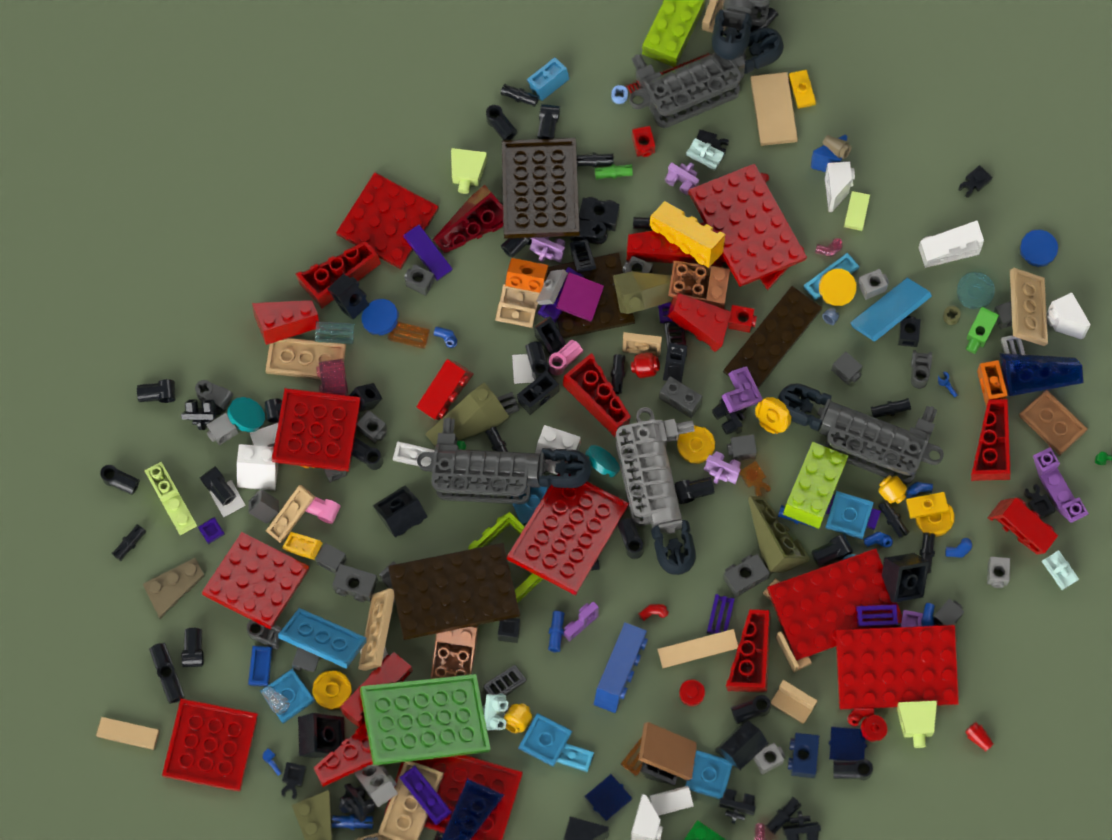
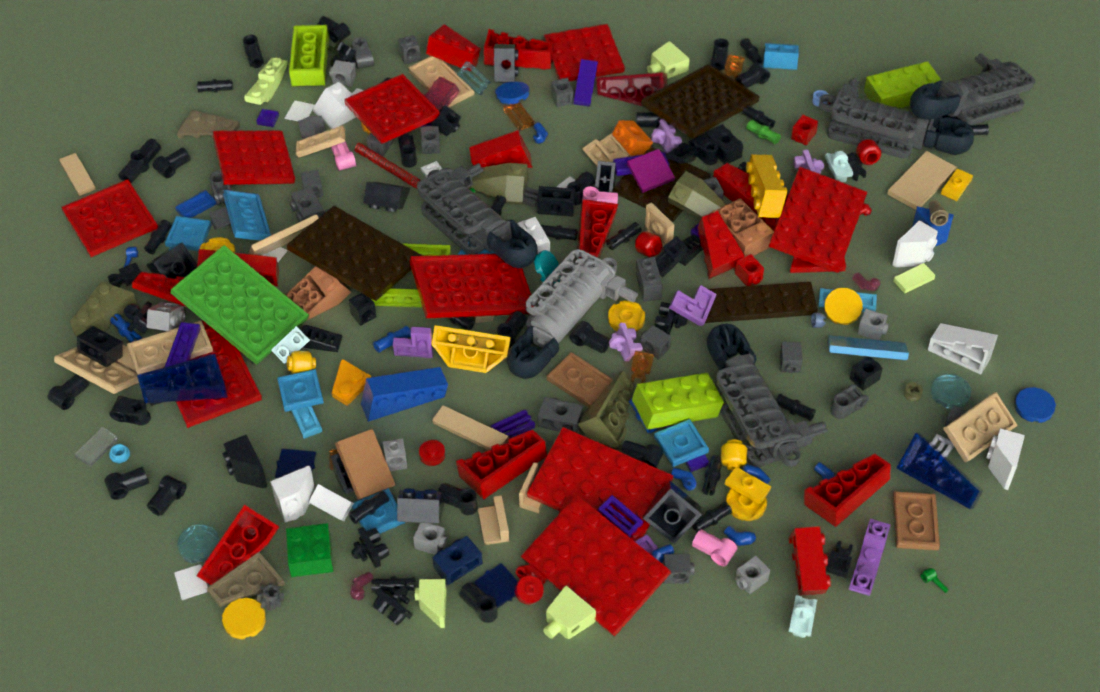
camera: 45 degrees right, 20 degrees down
(175, 439) = (309, 55): none -> lime brick
(215, 482) = (301, 95): black piece -> none
(246, 414) = (365, 74): teal tile -> none
(247, 354) = (409, 49): none -> dark grey brick
(271, 723) = (157, 236): none -> black pin
(276, 701) = (174, 225): clear cone -> none
(302, 545) = (304, 163): yellow plate -> none
(342, 486) = (383, 165): none -> red piece
(522, 122) = (734, 65): none -> clear orange plate
(551, 287) = (637, 151): light grey plate -> none
(567, 697) = (348, 382): none -> light orange wing
(568, 417) = (559, 232): none -> black pin
(625, 582) = (469, 348): none -> yellow wedge
(658, 609) = (470, 382): red arm -> none
(673, 720) = (395, 454): none -> light grey brick
(705, 779) = (368, 507): none -> black pin
(712, 119) = (868, 152): none -> red head
(724, 530) = (579, 379): none -> medium nougat tile
(773, 415) = (700, 337): yellow tile -> none
(823, 799) = (432, 599): none -> yellowish green slope
(946, 383) = (858, 427): blue hand -> none
(957, 573) = (719, 549): none -> bright pink piece
(966, 443) = (824, 471): none -> blue arm
(976, 179) = (1031, 328): black plate -> none
(979, 736) = (602, 669): red cone -> none
(984, 324) = (925, 412): bright green torso -> none
(992, 381) = (895, 447): orange brick -> none

